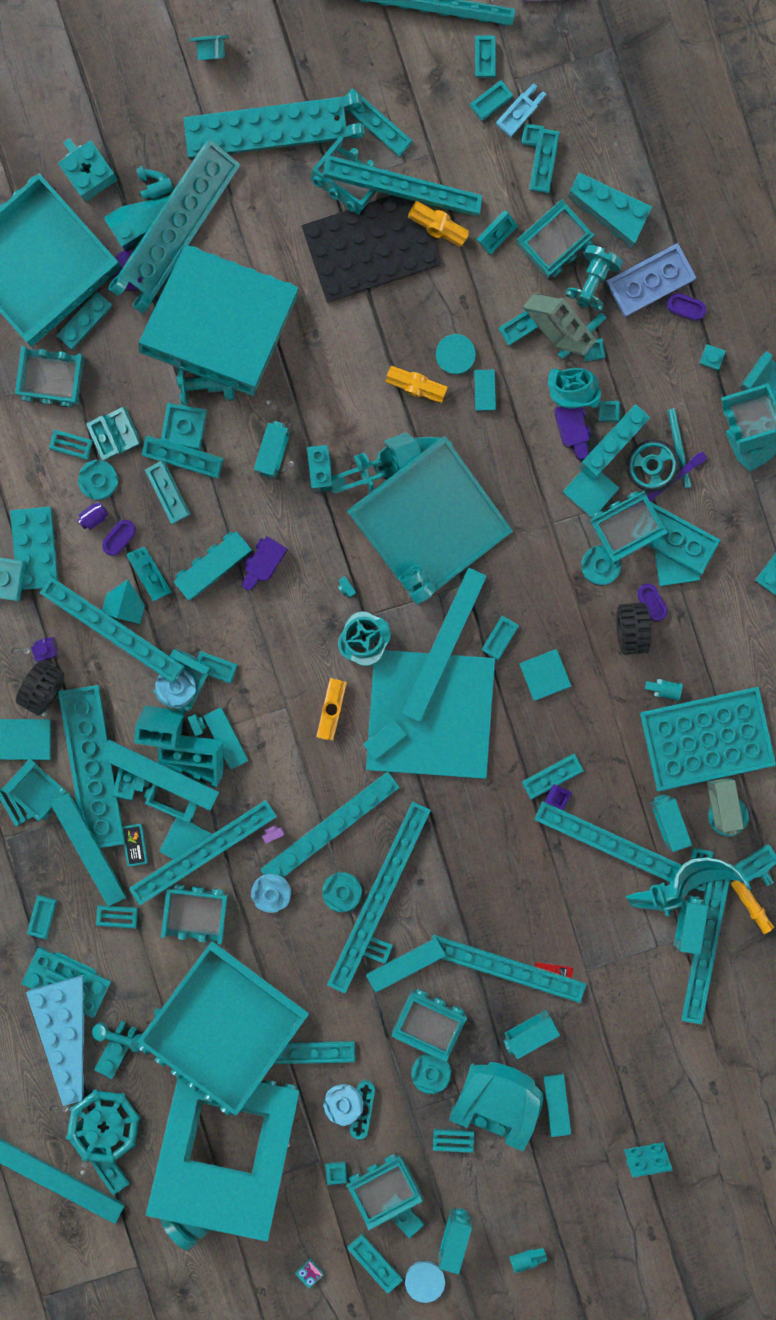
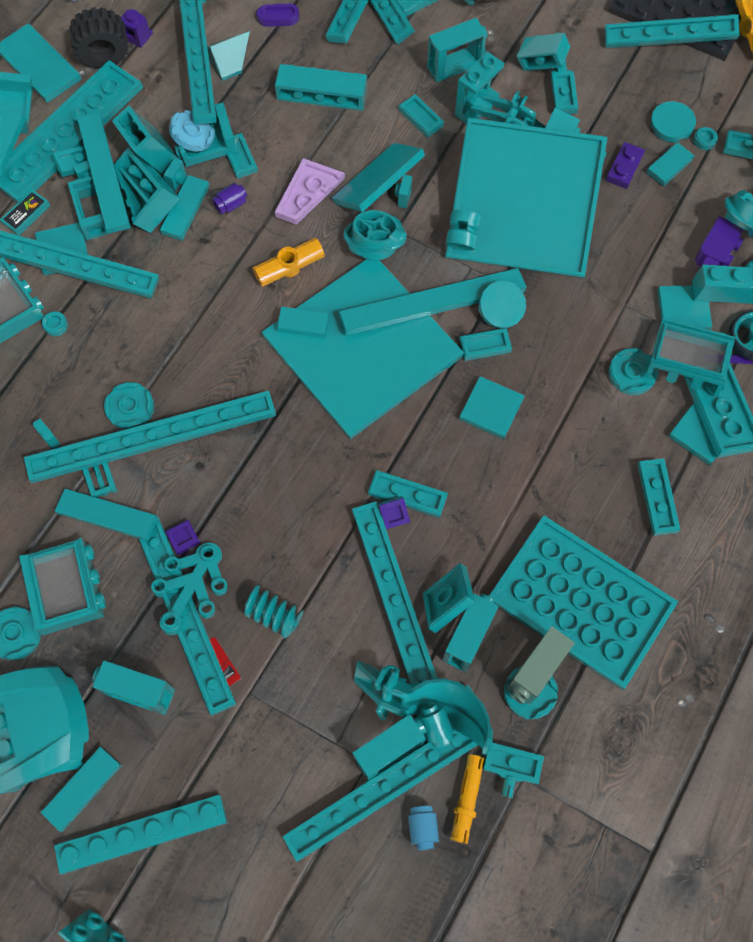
camera: 45 degrees right, 20 degrees down
(148, 573) = (269, 51): teal hinge -> none
(239, 891) = (54, 323): none -> teal tile
(248, 705) = (229, 198): none -> dark purple brick
(264, 562) = (360, 118): dark purple hinge -> none
(271, 893) = (74, 346): medium azure tile -> none
(273, 833) = (132, 305): medium lavender plate -> none
(286, 648) = (307, 189): none -> lavender wing
(295, 517) = (421, 116): none -> teal tile
(319, 958) = (46, 434): none -> teal tile
(322, 595) = (378, 176): none -> teal tile
(326, 391) = (543, 51): none -> teal brick
(332, 826) = (180, 348): teal plate -> none
(364, 402) = (564, 90): none -> teal hinge
(389, 284) = (672, 31): none -> teal tile
(416, 384) = (619, 111): light orange piece -> none
(458, 420) = (625, 165): none -> dark purple plate
(459, 930) = (182, 537): none -> dark purple tile
(485, 604) = (502, 304): none -> teal tile
(487, 345) = (705, 138): none -> teal tile
(495, 949) = (192, 583): none -> teal plant
(554, 920) = (272, 613): none -> teal piece
(610, 1092) = (140, 834): none -> teal plate
(633, 628) = (612, 434): black tyre -> none
(640, 817) = (448, 597): none -> teal tile
(650, 596) = (648, 440): dark purple tile -> none
(665, 689) = (586, 519): teal hinge -> none
(690, 633) = (658, 497): none -> teal plate
(703, 890) = (436, 724): none -> teal brick
(745, 942) = (423, 827): none -> dark azure brick

